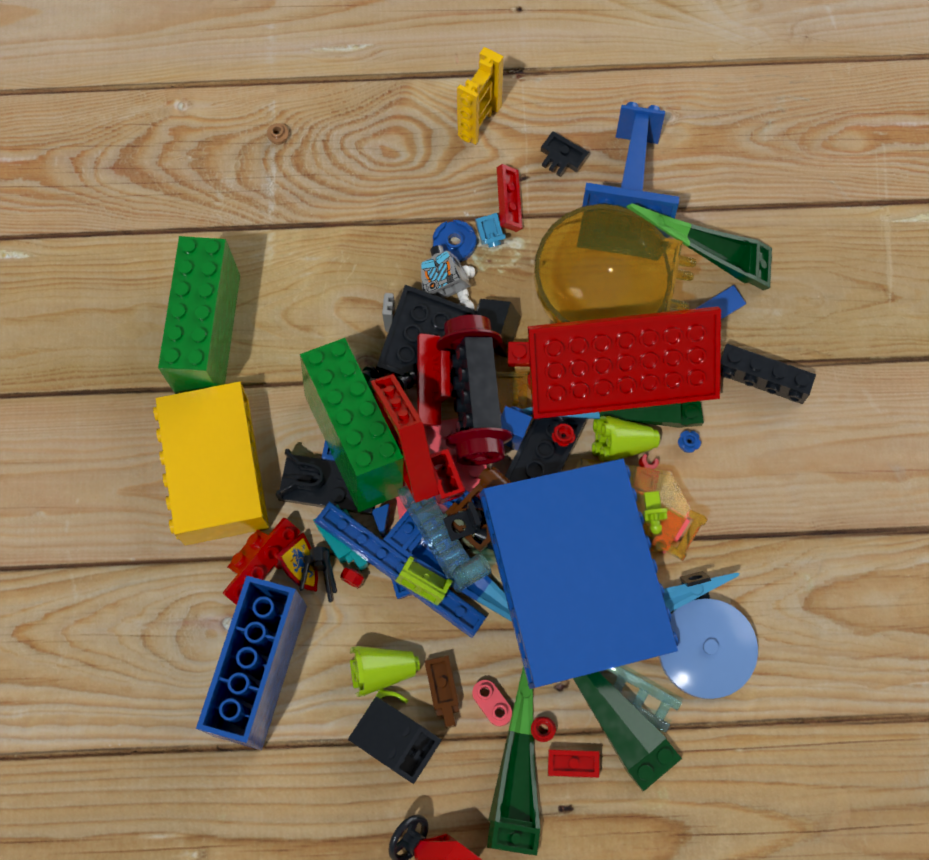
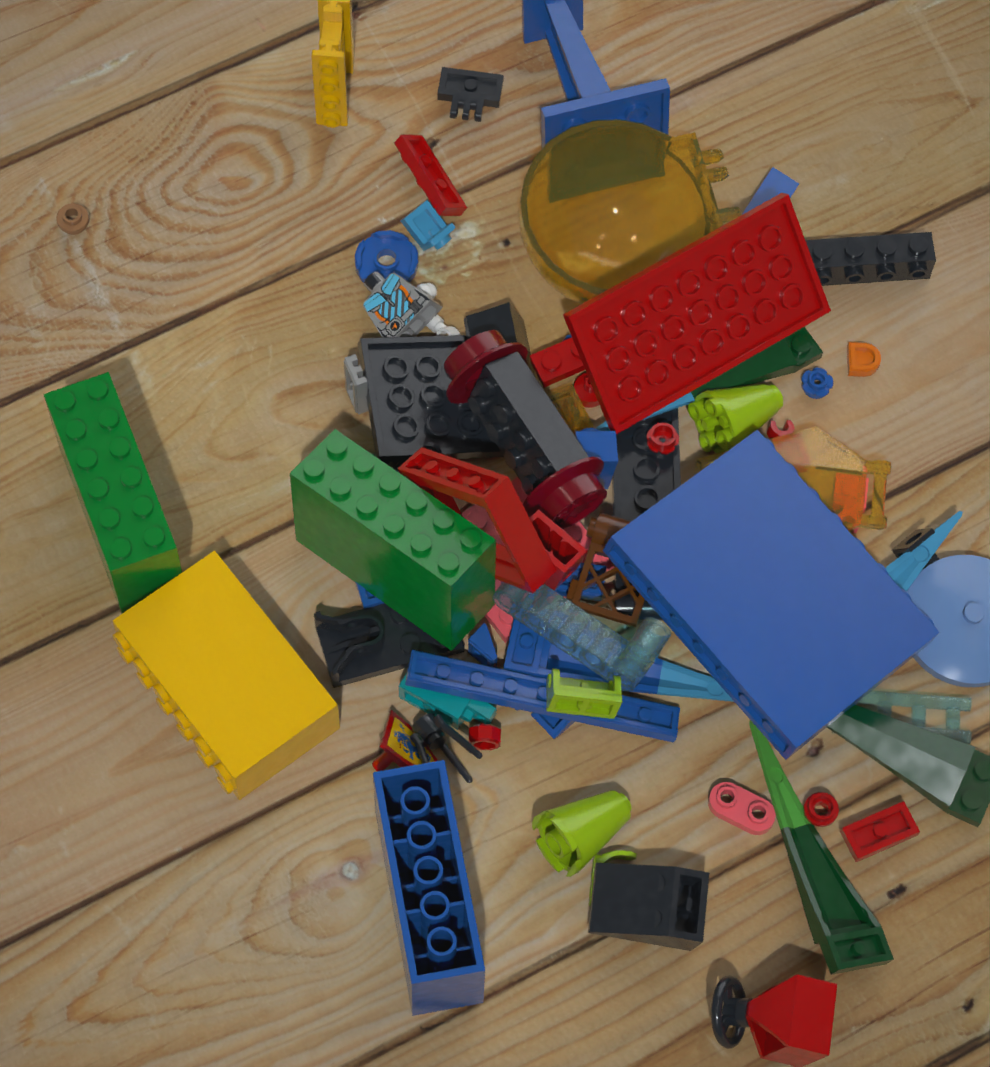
camera: 30 degrees left, 5 degrees down
(258, 556) = (349, 768): red bracket -> none
(432, 379) = (456, 426): red bracket -> none
(442, 689) = (673, 819): reddish brown hinge -> none
(471, 518) = (607, 586): black bracket -> none
(653, 512) = (824, 480): lime piece -> none
(728, 439) = (862, 359): none -> orange tile
(737, 255) = (760, 126): dark green plate -> none

